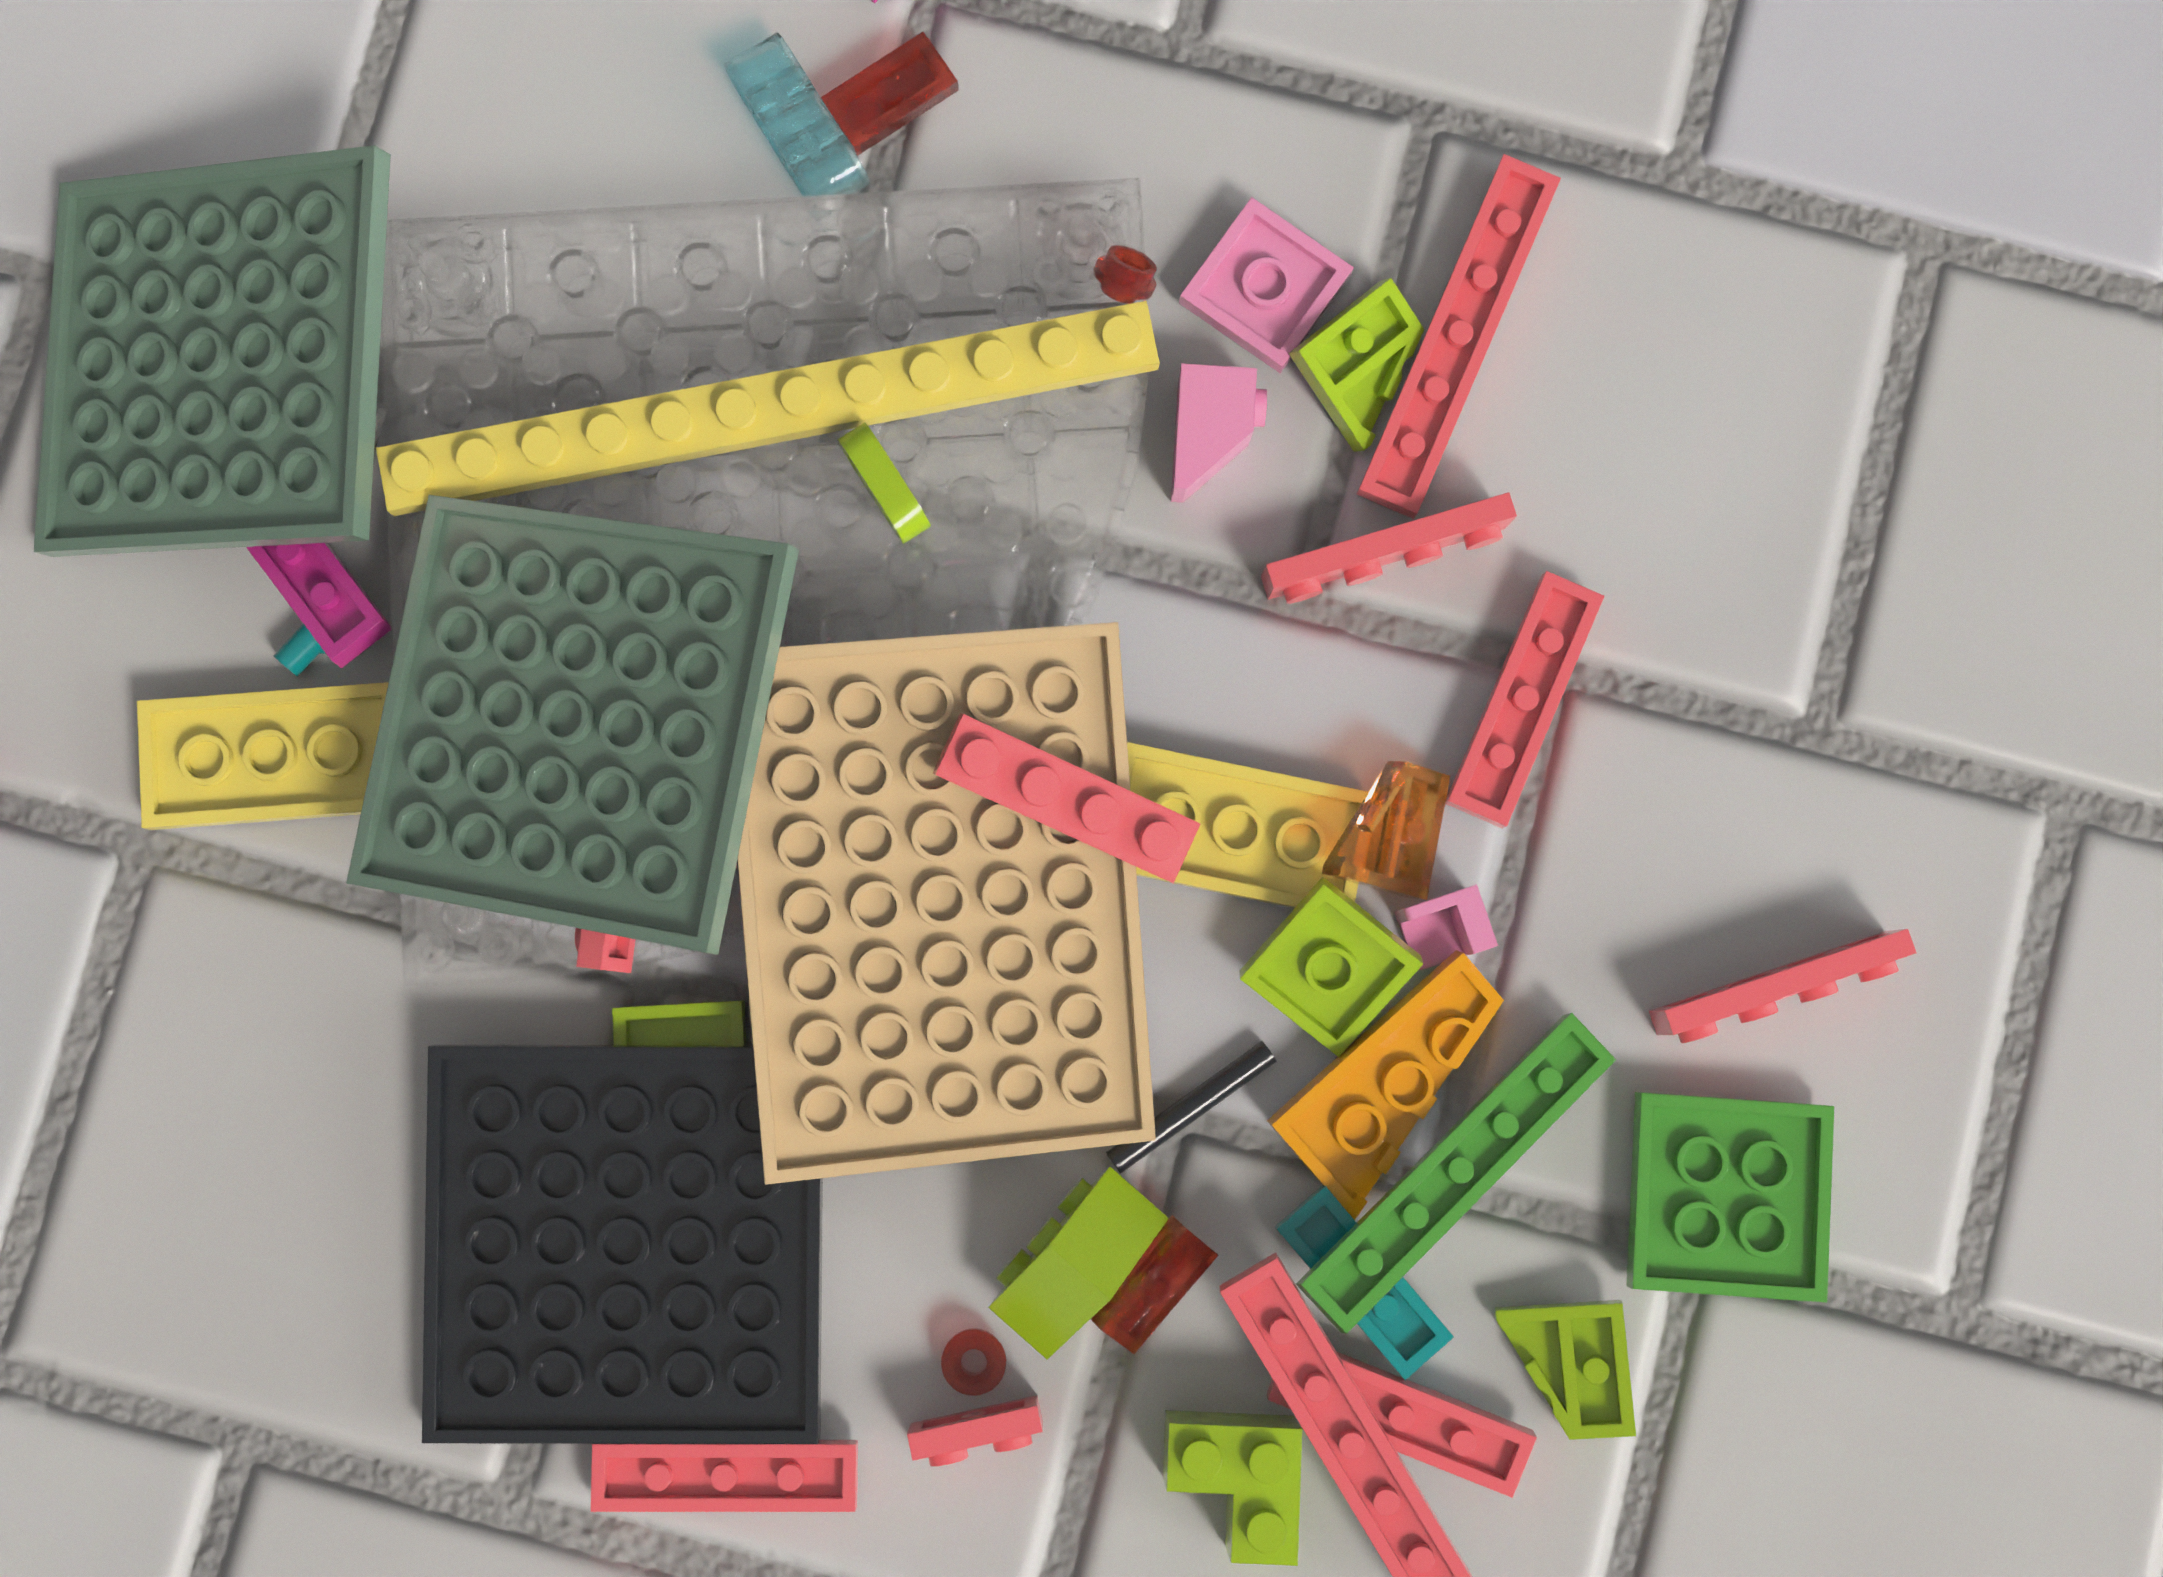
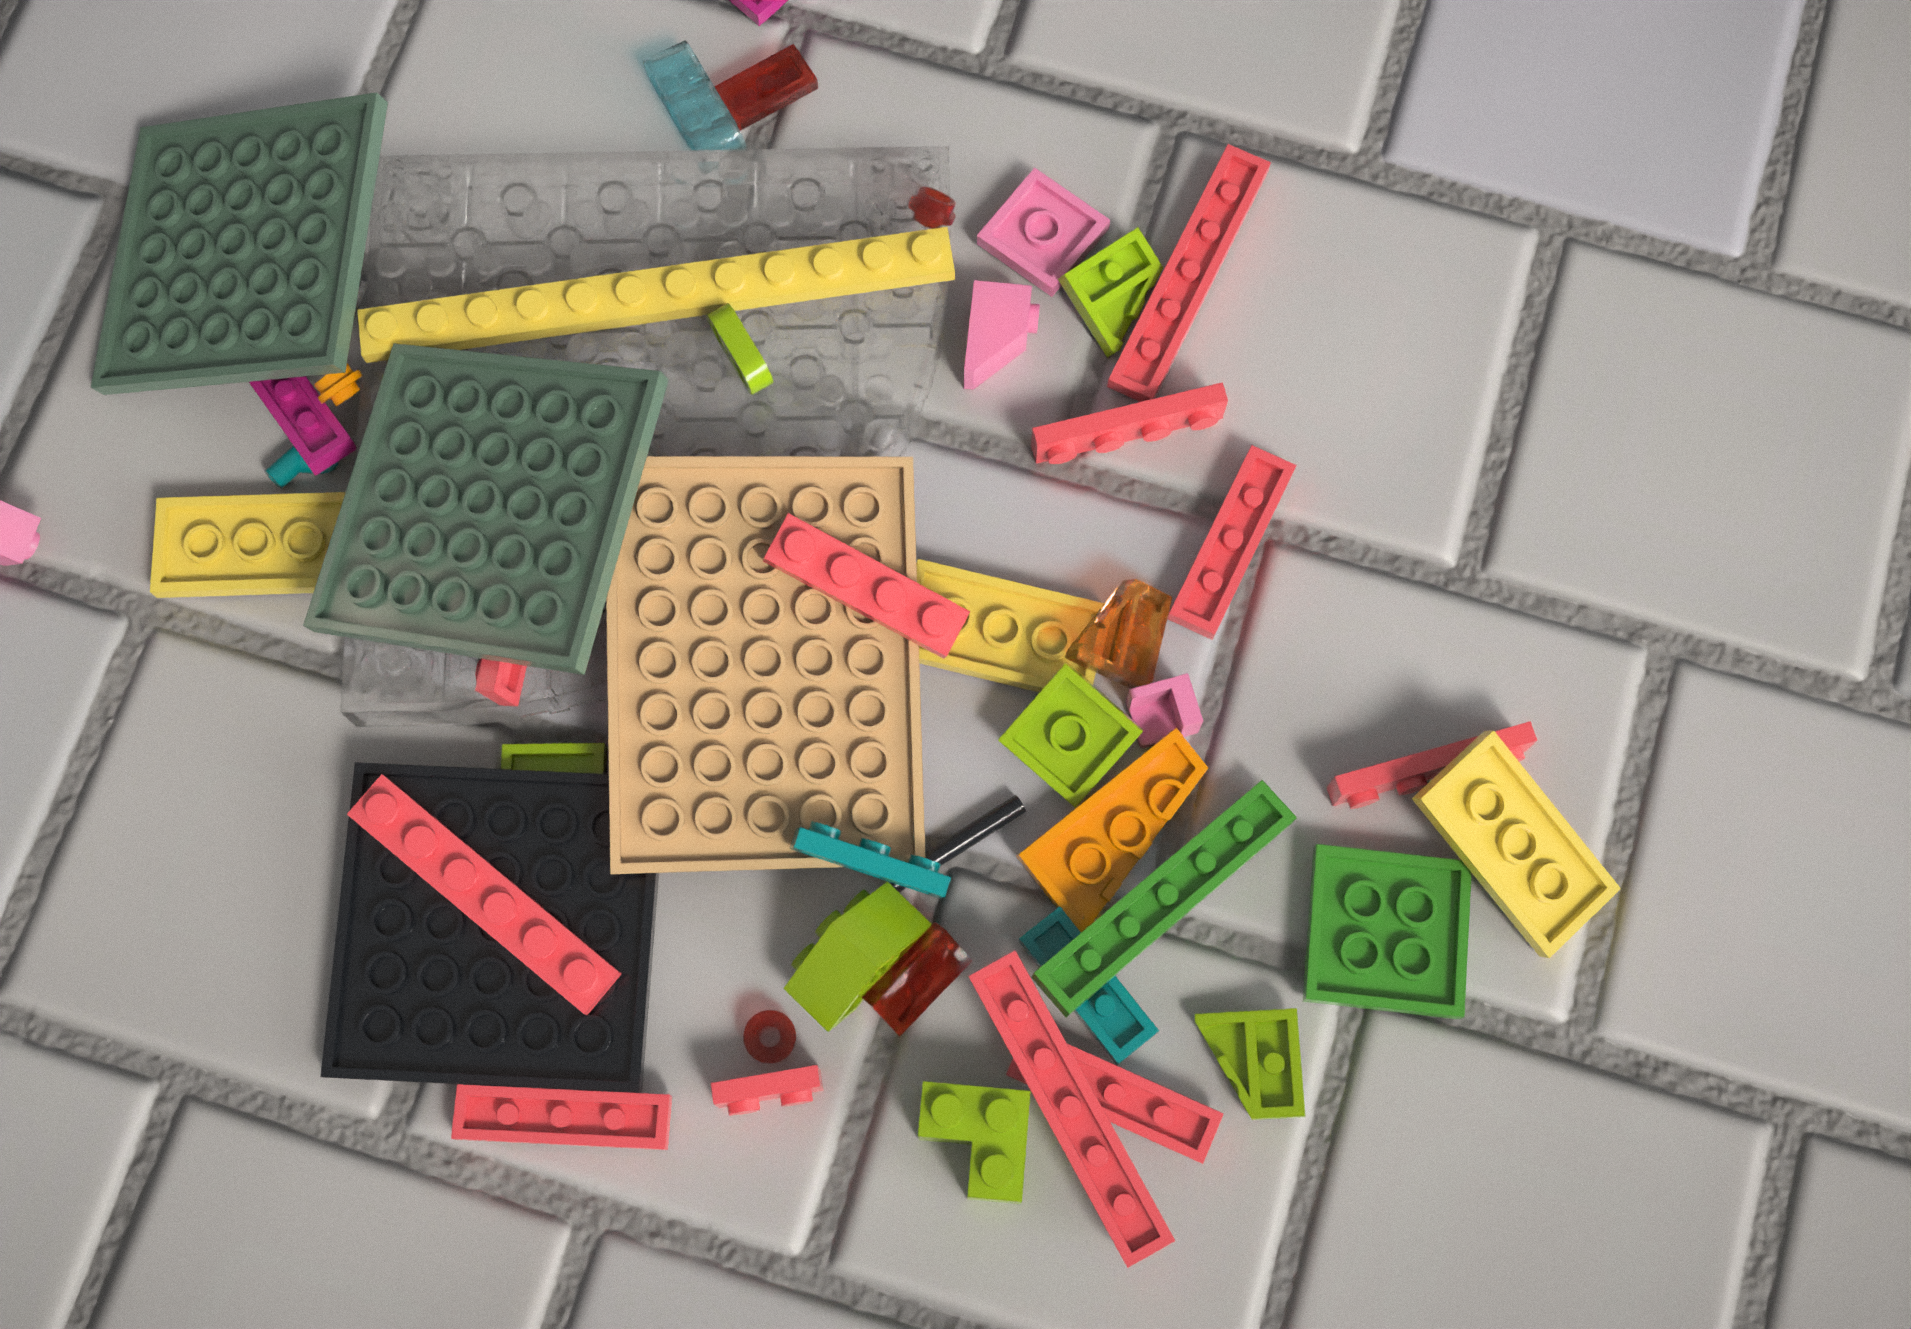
camera: 10 degrees right, 10 degrees down
(361, 555) = (338, 386): none -> light orange plate
(605, 1209) = (484, 894): none -> coral plate
(1089, 1148) = (870, 859): none -> teal plate
(1890, 1085) = (1516, 843): none -> light yellow plate

